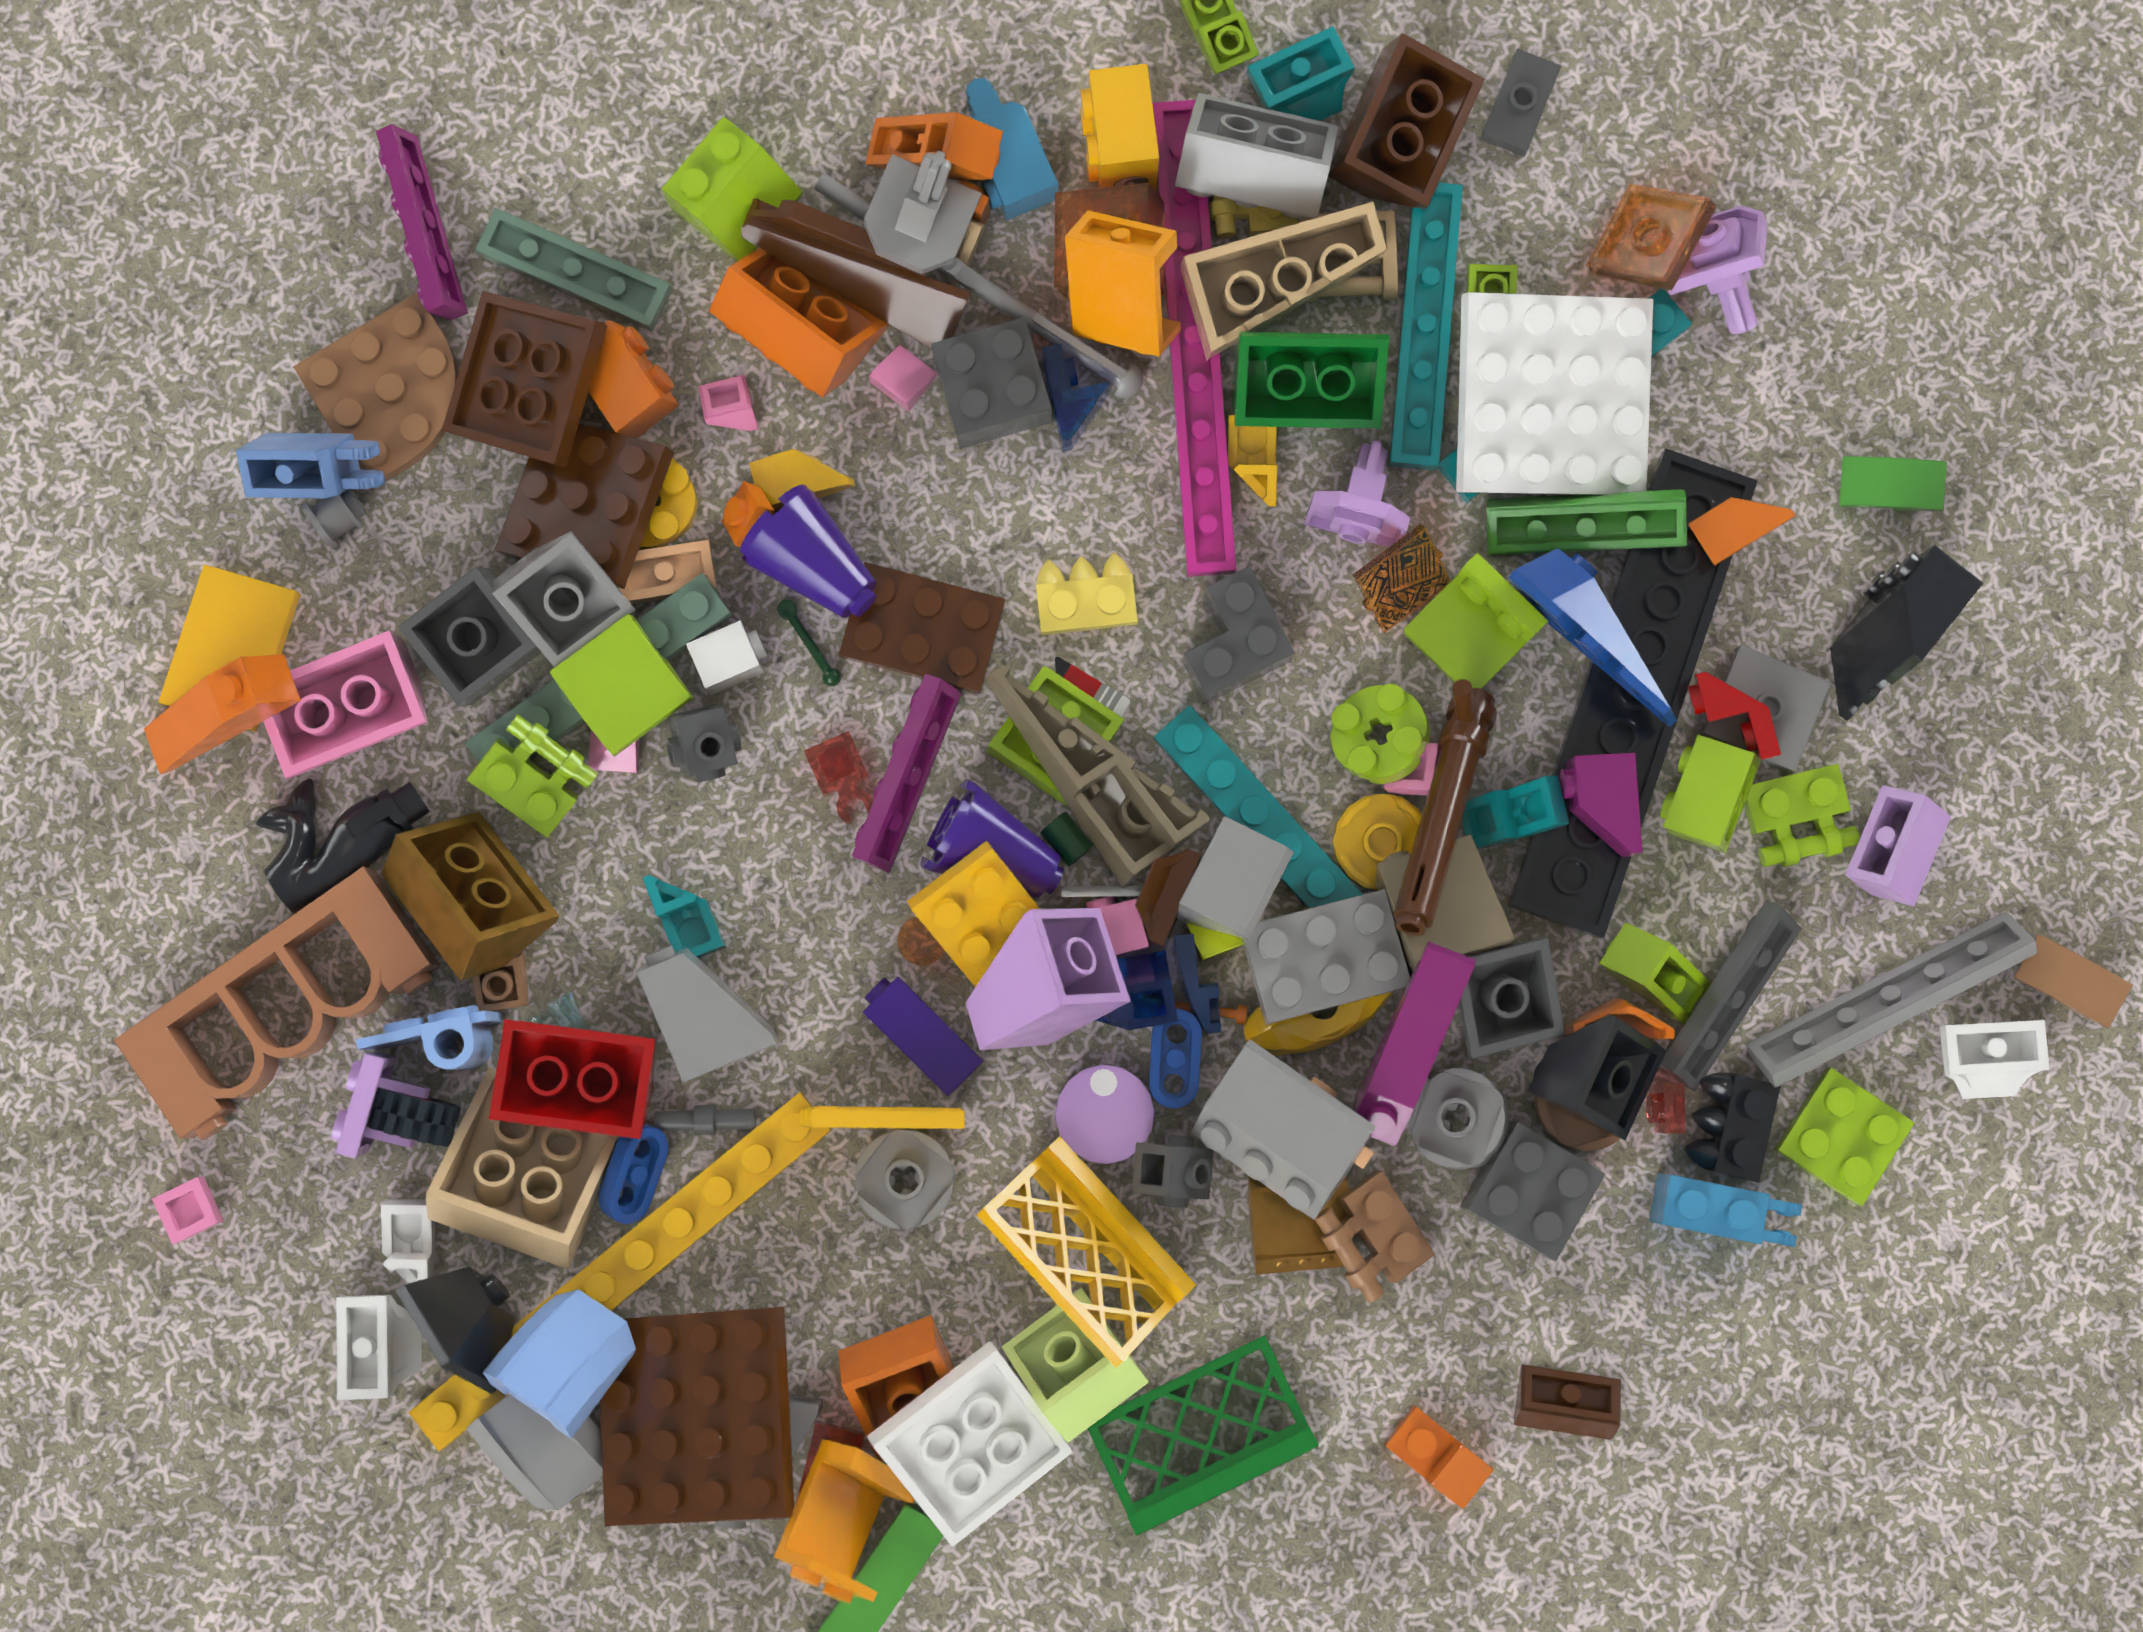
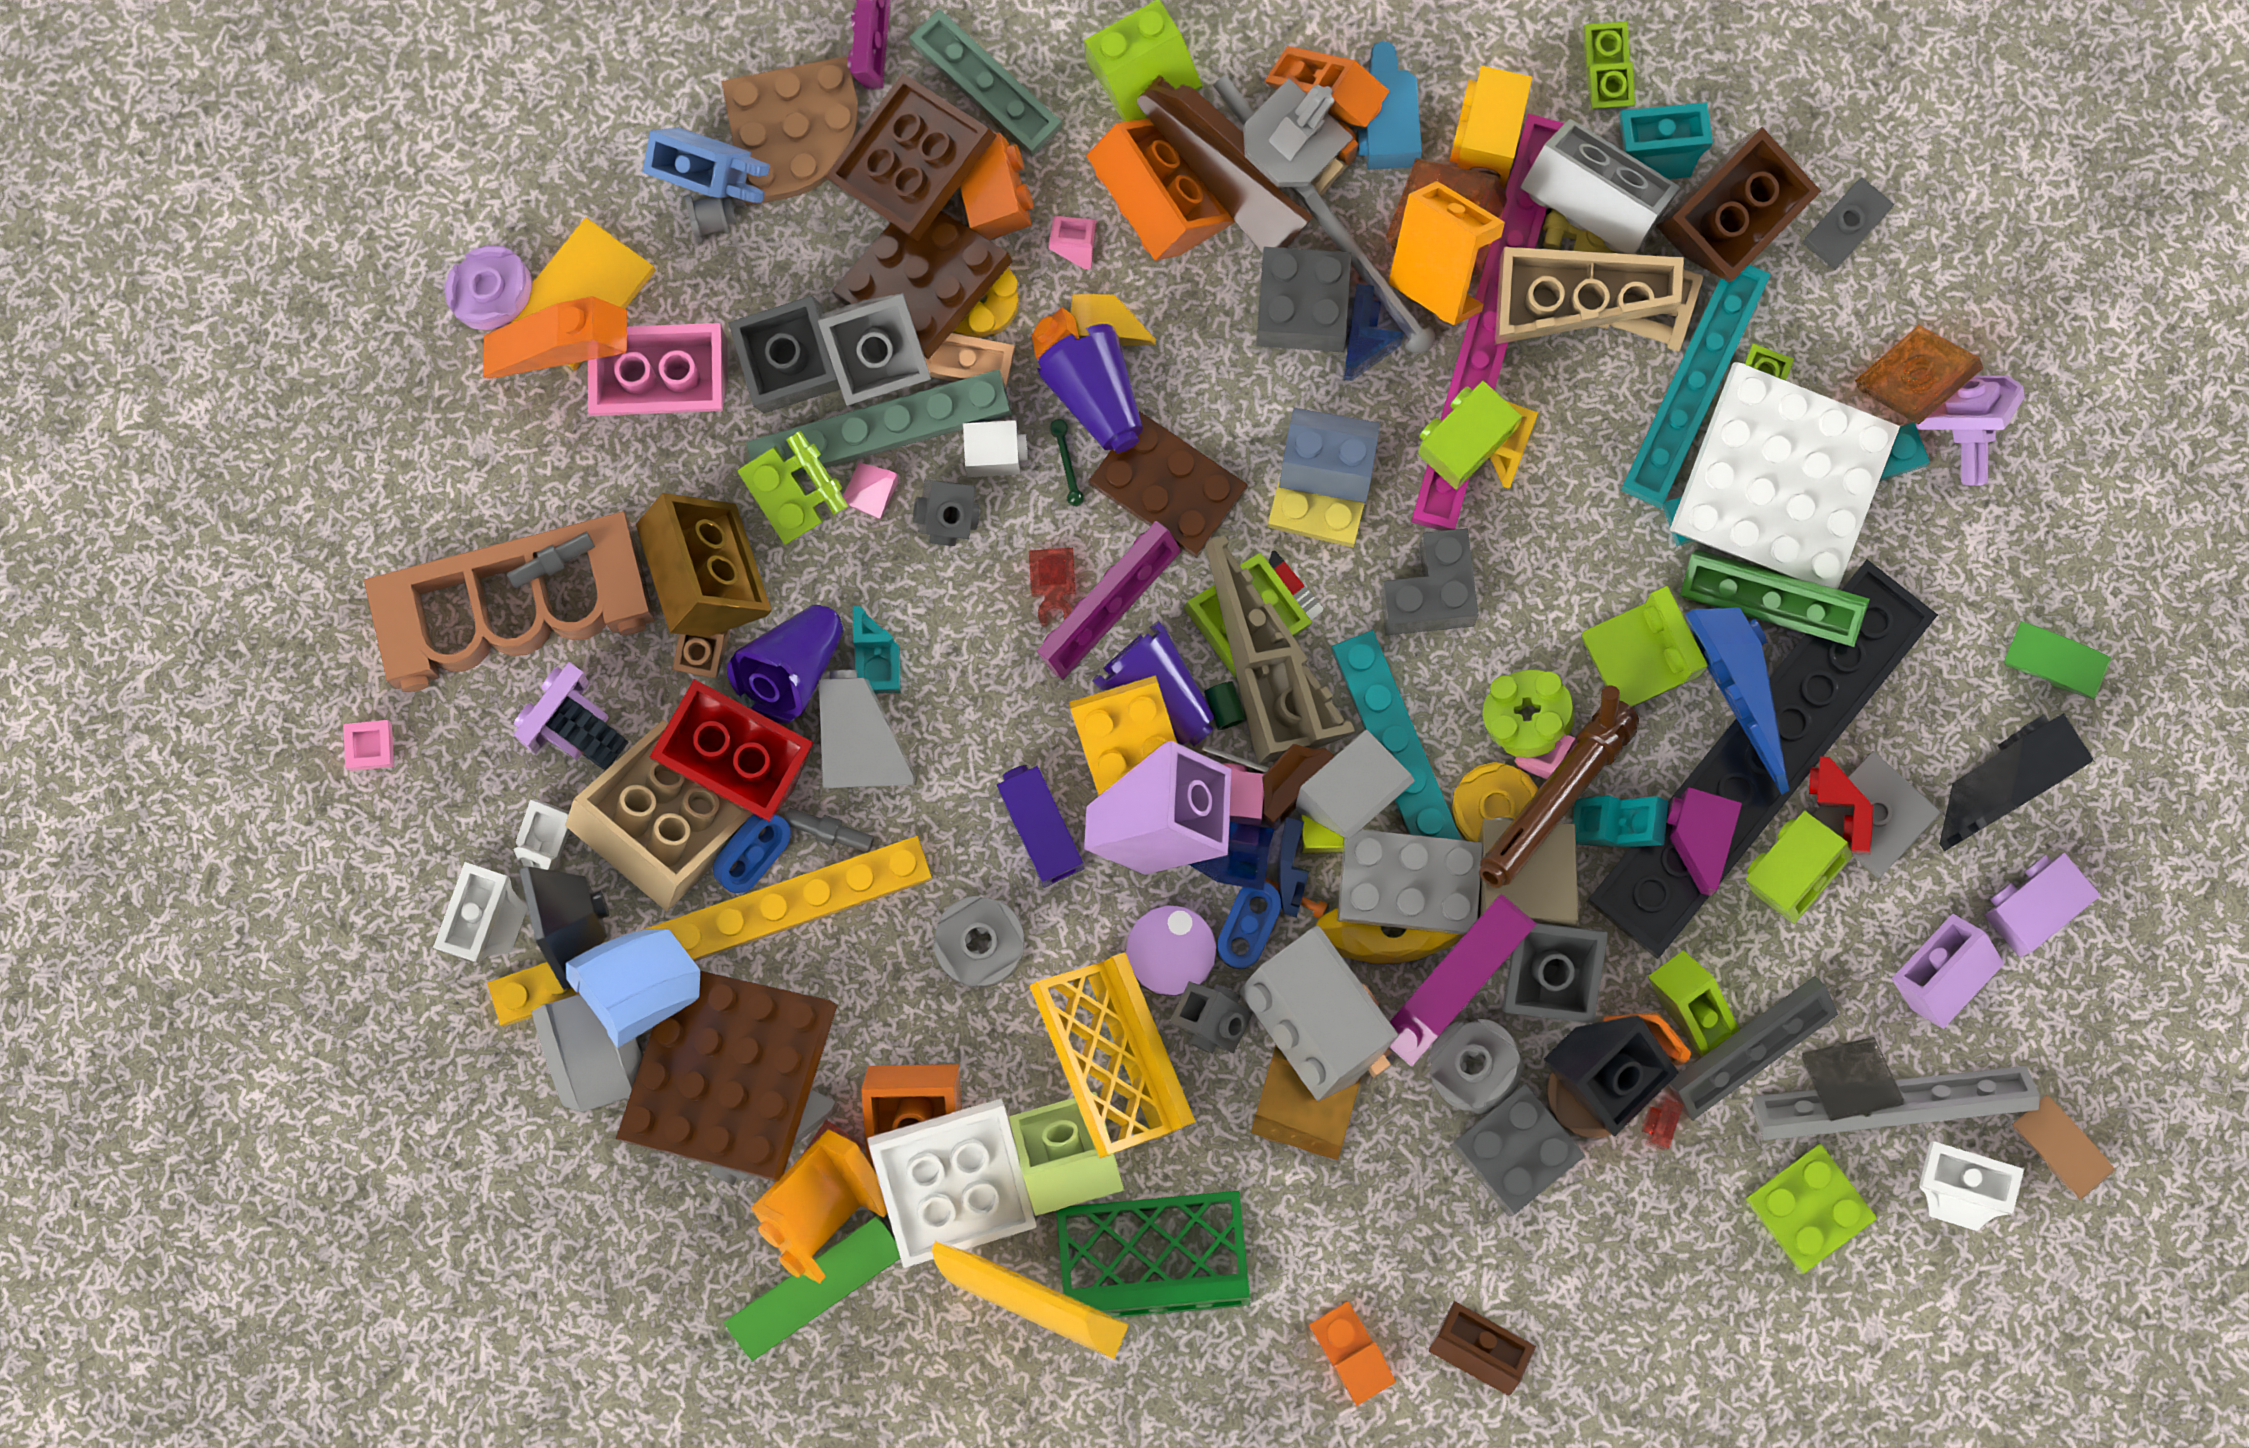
camera: 25 degrees right, 5 degrees down
(128, 677) = (488, 287): none -> lavender tile
(305, 947) = (550, 560): none -> dark grey bar
(354, 841) = (624, 488): black piece -> none
(440, 1036) = (634, 674): light blue piece -> none
(596, 964) = (786, 663): none -> dark purple cone
(621, 685) = (896, 438): lime slope -> none
(882, 1117) = (980, 877): yellow tile -> none
(902, 377) = (1229, 269): bright pink slope -> none
(917, 943) = (1066, 748): clear orange plate -> none
(1079, 537) = (1329, 455): none -> sand blue slope
(1098, 1534) = (1030, 1299): none -> yellow slope
(1216, 466) = (1468, 433): none -> lime brick
(1309, 380) = (1577, 389): green slope -> none
(1358, 512) = (1579, 517): lavender piece -> none
(1385, 1228) = (1376, 1134): medium nougat plate -> none
(1402, 578) = (1595, 587): clear orange piece -> none
(1719, 1210) = (1676, 1228): dark azure hinge -> none
(1736, 525) = (1904, 644): orange slope -> none
(1738, 1125) = (1719, 1163): black plate -> none
(1796, 800) = (1876, 903): lime plate -> none
(1841, 991) = (1852, 1079): none -> clear smoke piece
(1966, 742) = (2041, 904): none -> lavender brick

